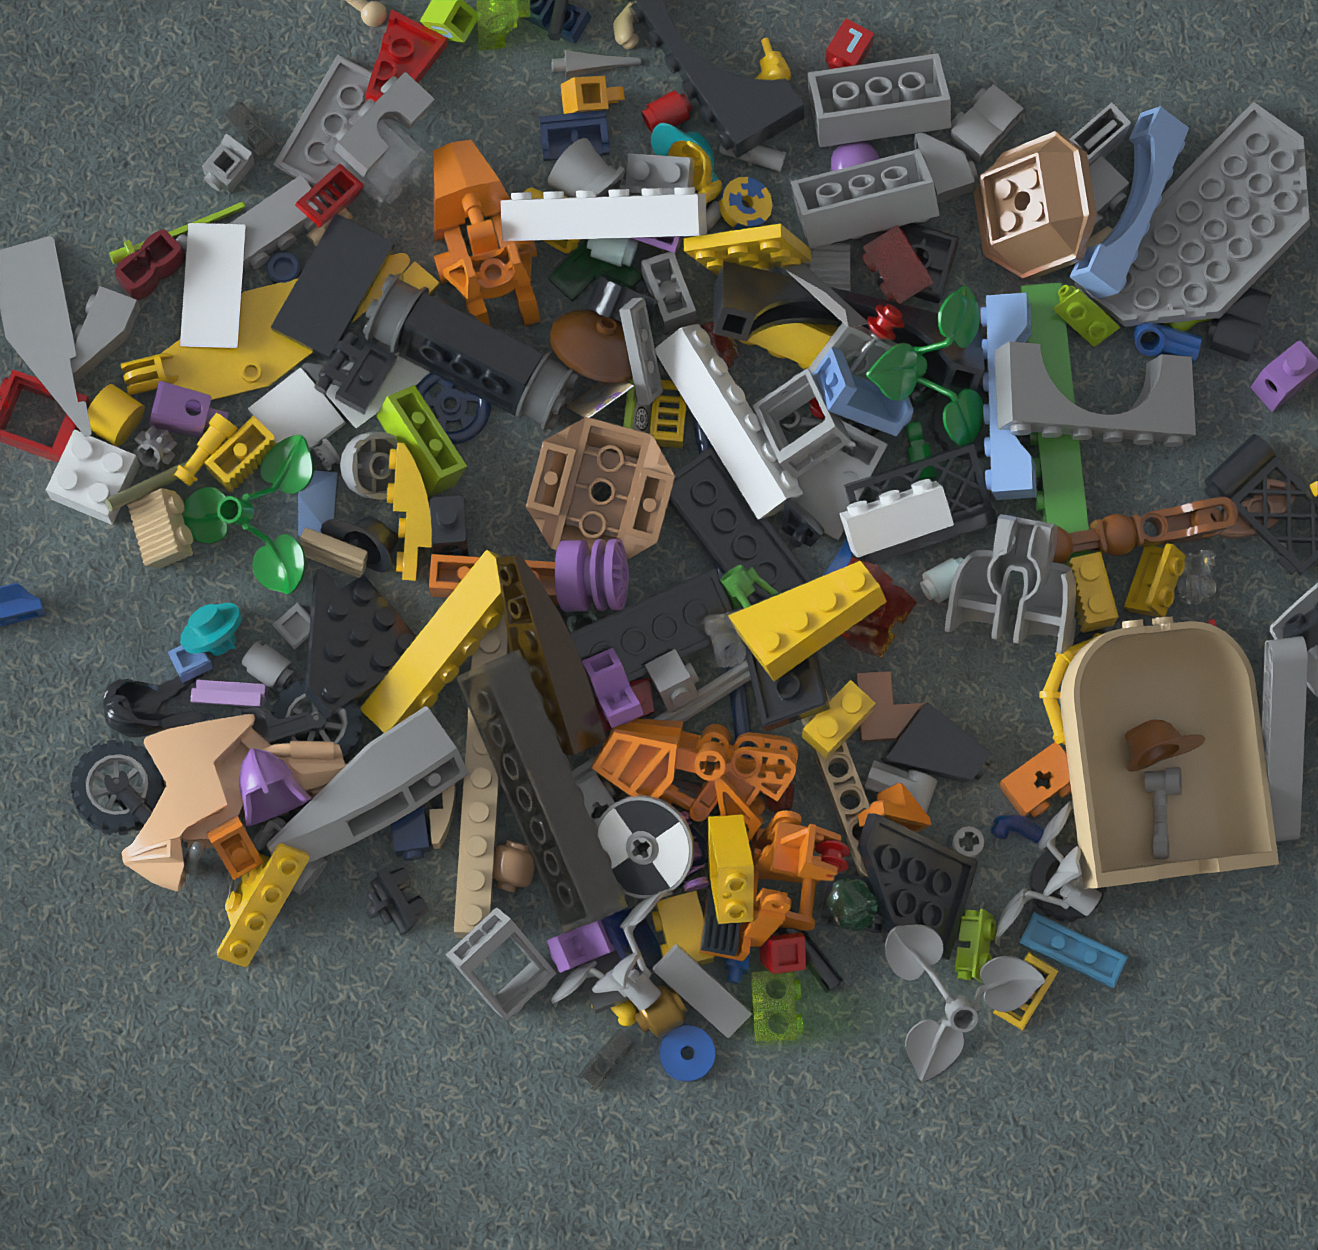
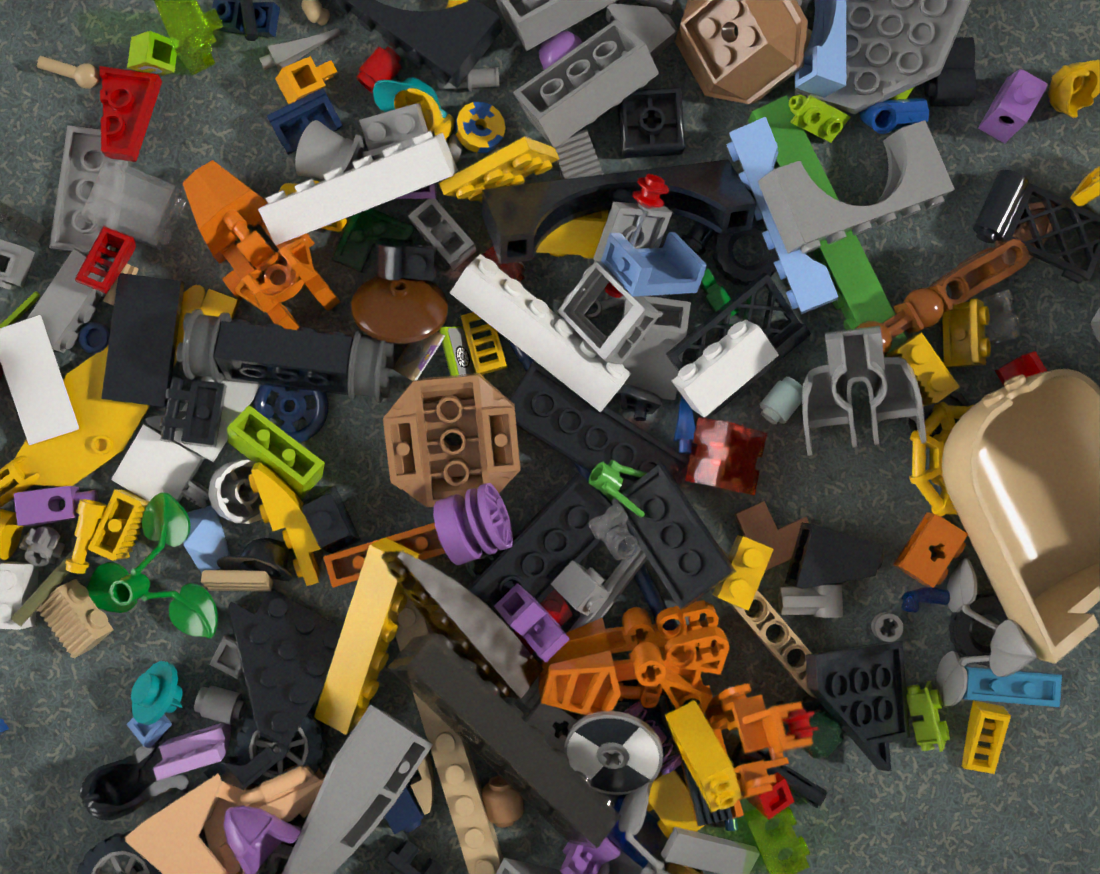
camera: 20 degrees left, 10 degrees up
(402, 101) = (131, 149): light grey arch -> none
(613, 250) = (380, 215): light aqua brick -> none
(641, 351) = (439, 299): light grey tile -> none
(807, 617) = (684, 498): yellow wedge -> none
(826, 295) = (587, 187): sticker -> none
(897, 264) = (639, 133): clear red brick -> none
(898, 806) = (819, 630): orange slope -> none
(904, 365) = (683, 227): green plant -> none
(934, 1045) = (925, 819): light grey plant -> none
(1157, 741) = (1025, 483): dark orange piece -> none
(1162, 784) = (1042, 518): light grey brick -> none

